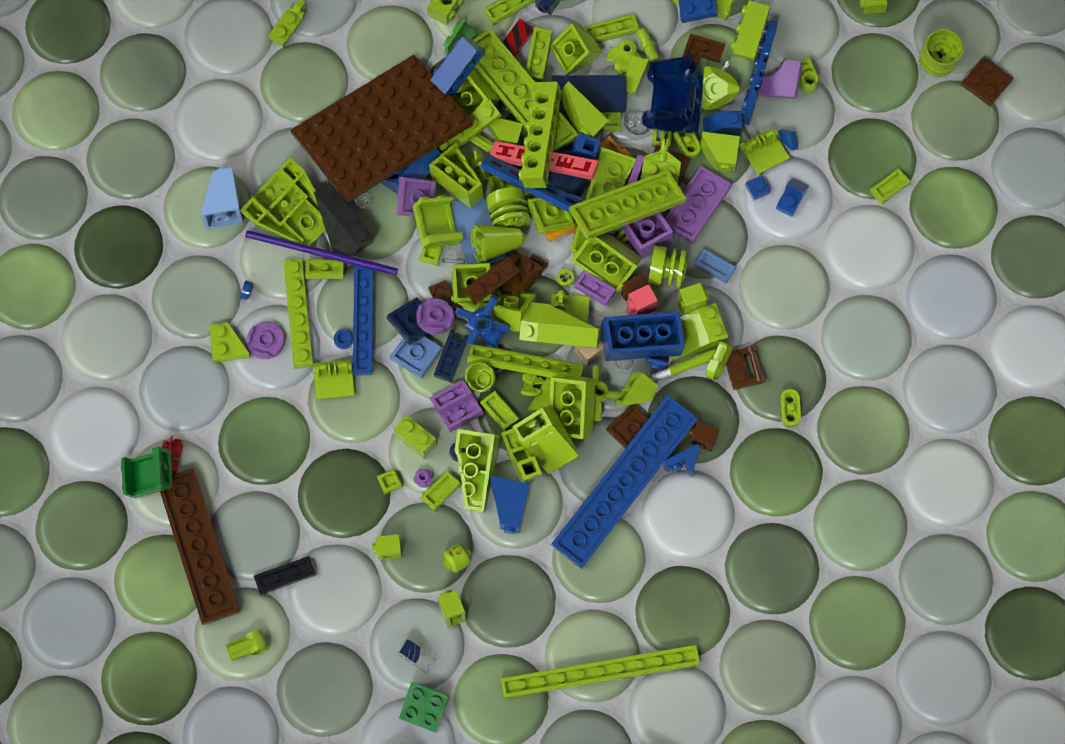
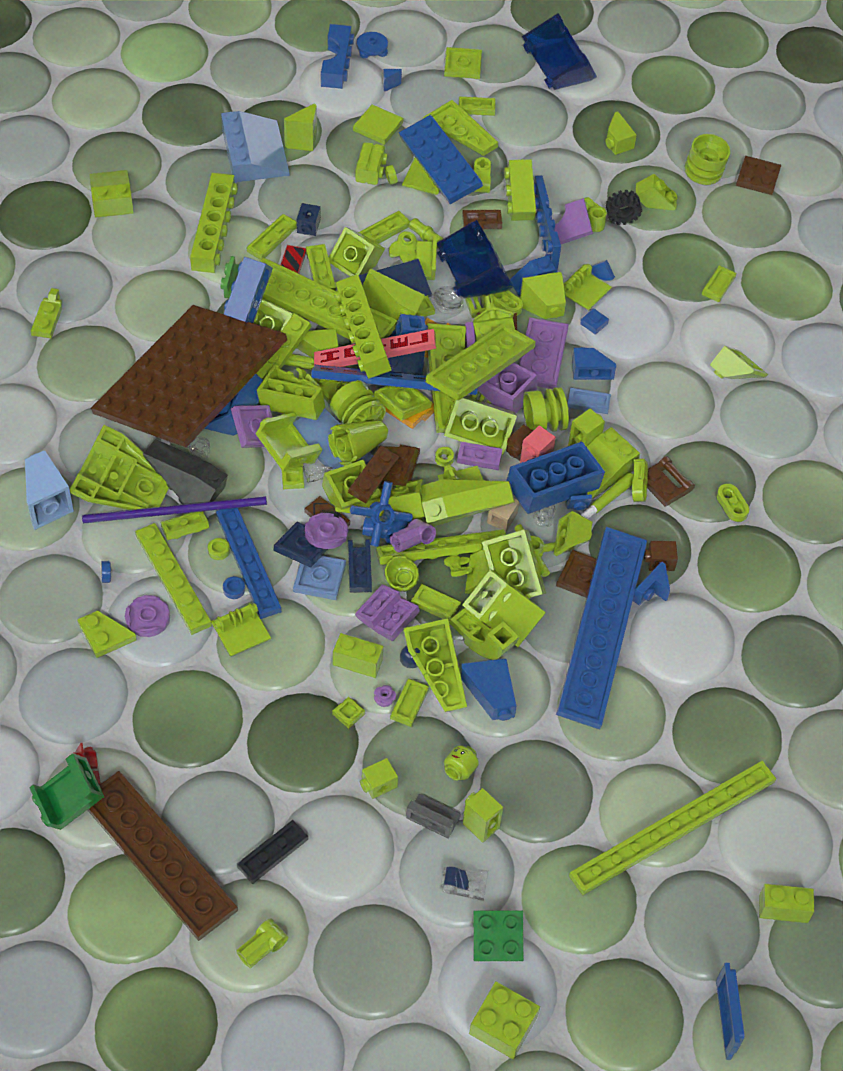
camera: 25 degrees left, 15 degrees down
(344, 299) = (218, 549): none -> lime tile
(418, 591) = (432, 815): none -> dark grey panel
(508, 345) = (415, 533): none -> medium lavender piece
(718, 87) = (513, 246): lime hat -> none
(731, 232) = (592, 365): none -> blue slope
(792, 197) = (632, 320): blue slope -> none
(837, 80) = (621, 200): none -> black tyre
(861, 277) = (735, 365): none -> lime slope
(876, 73) = (656, 194): none -> lime slope

